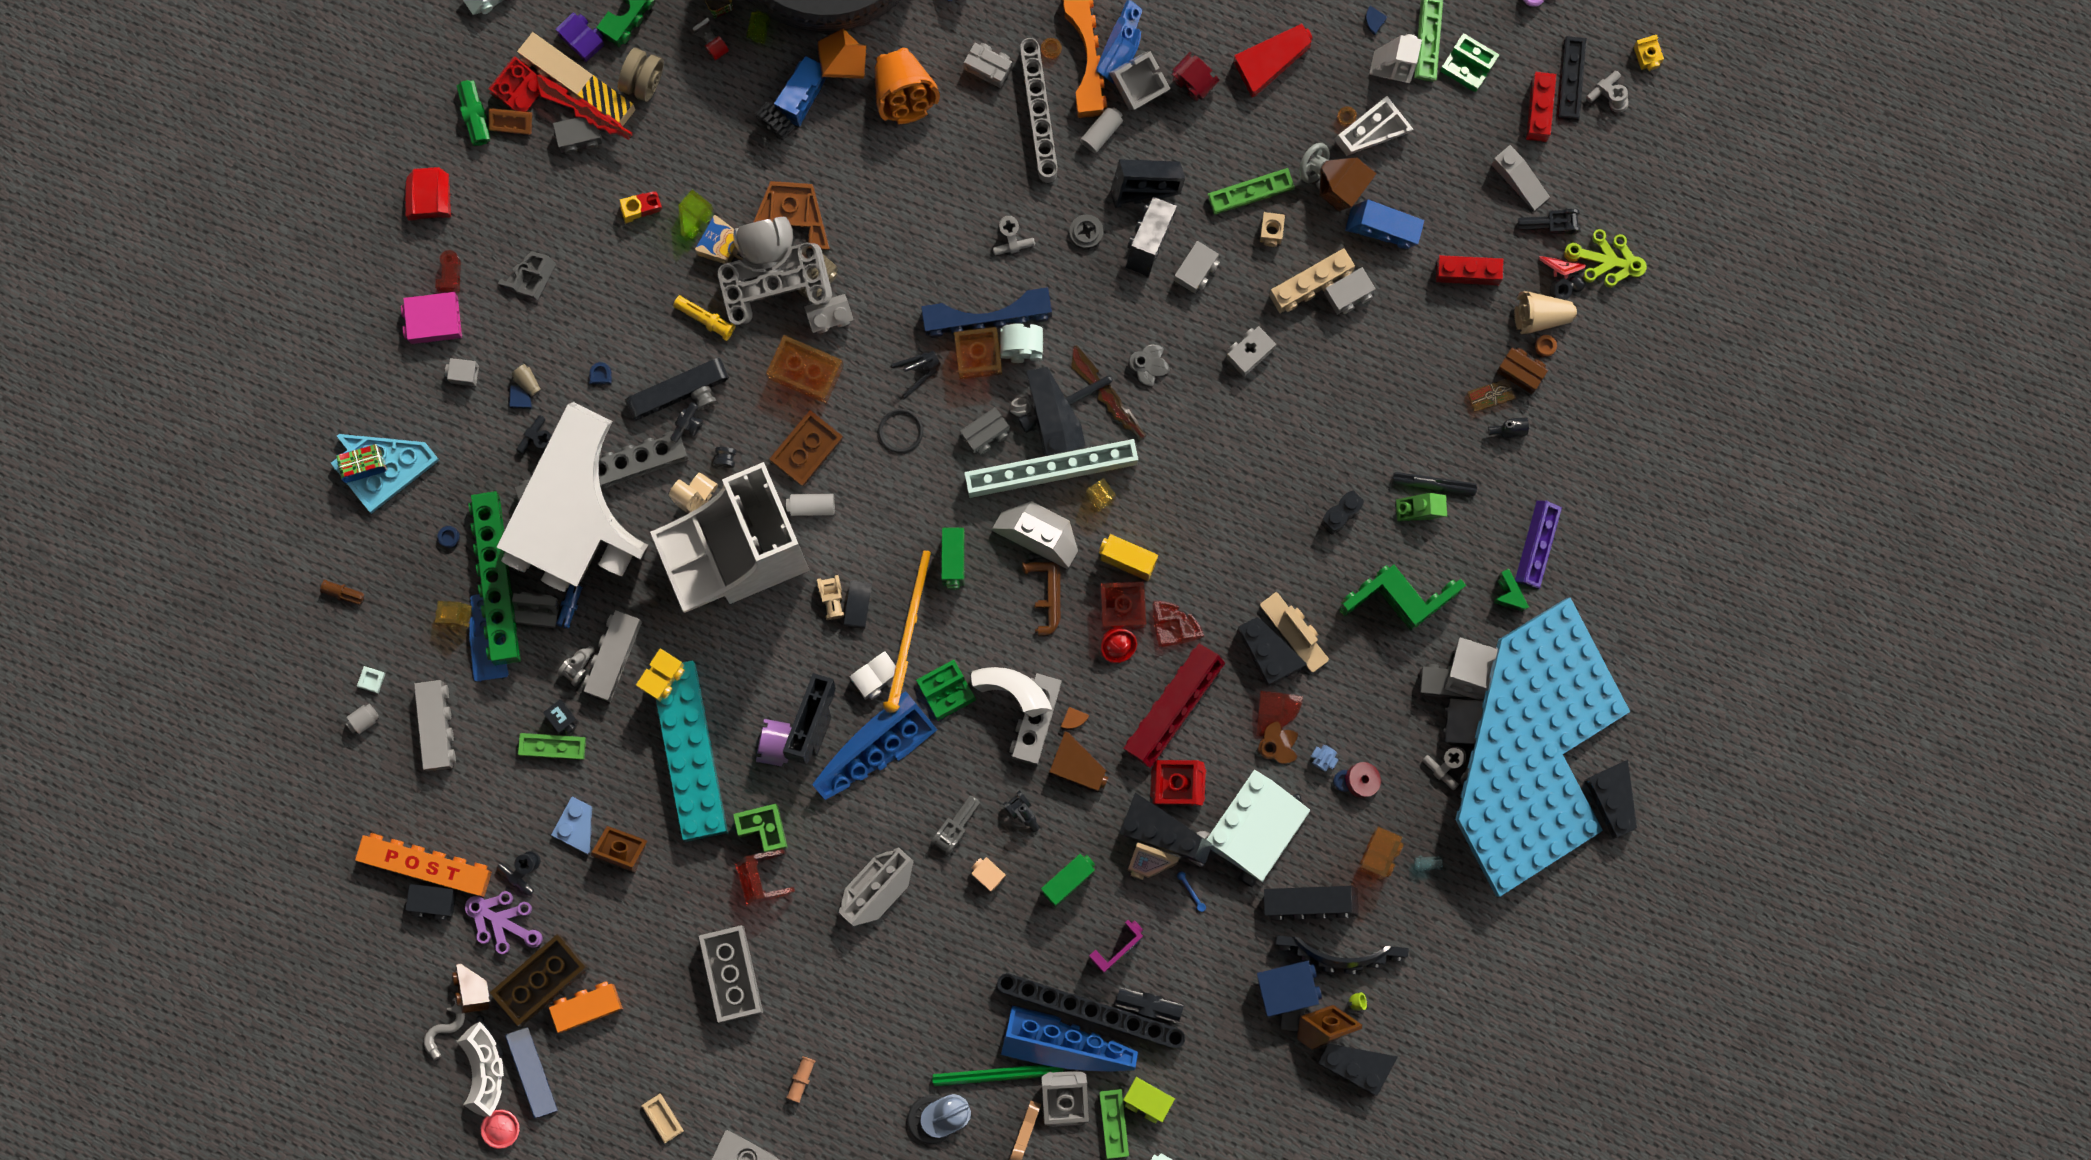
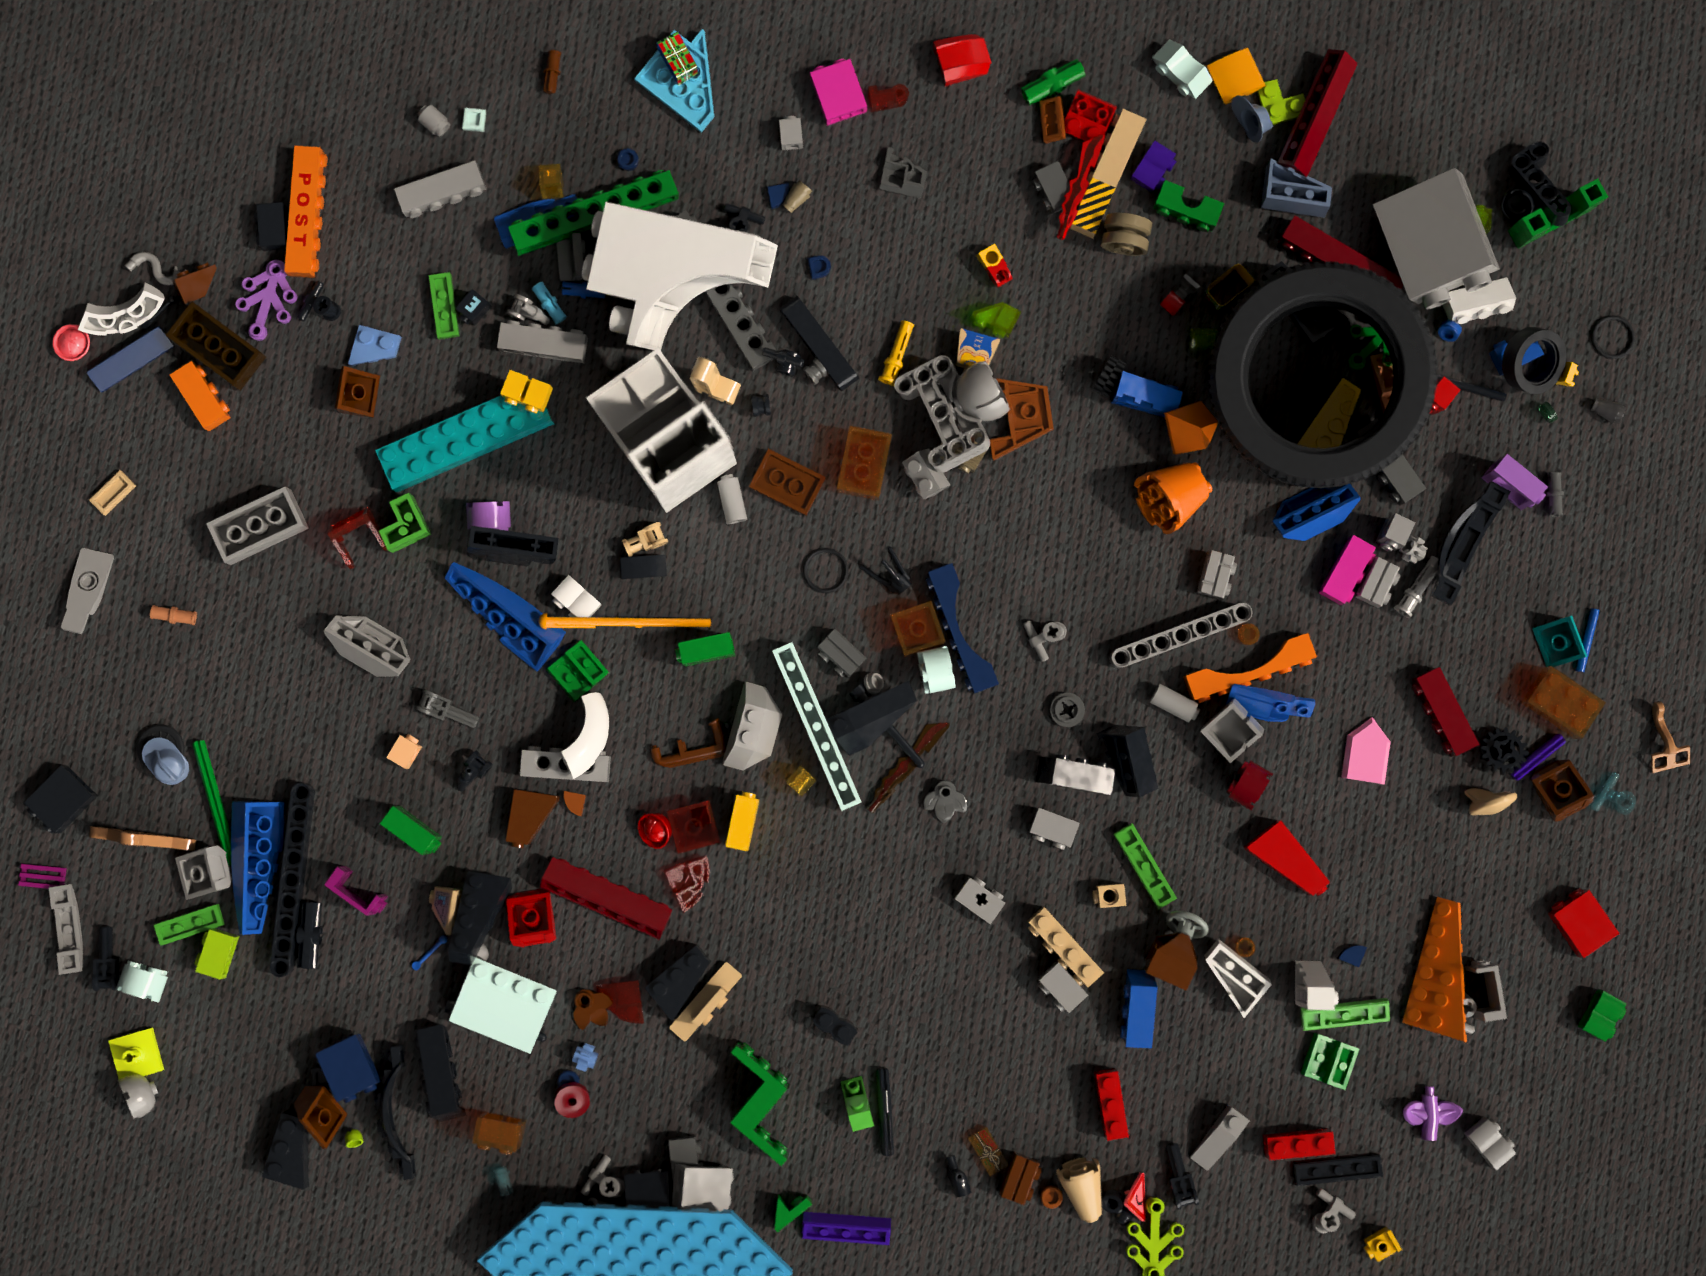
camera: 75 degrees right, 5 degrees up
(574, 642) = (549, 302): none -> medium azure pin

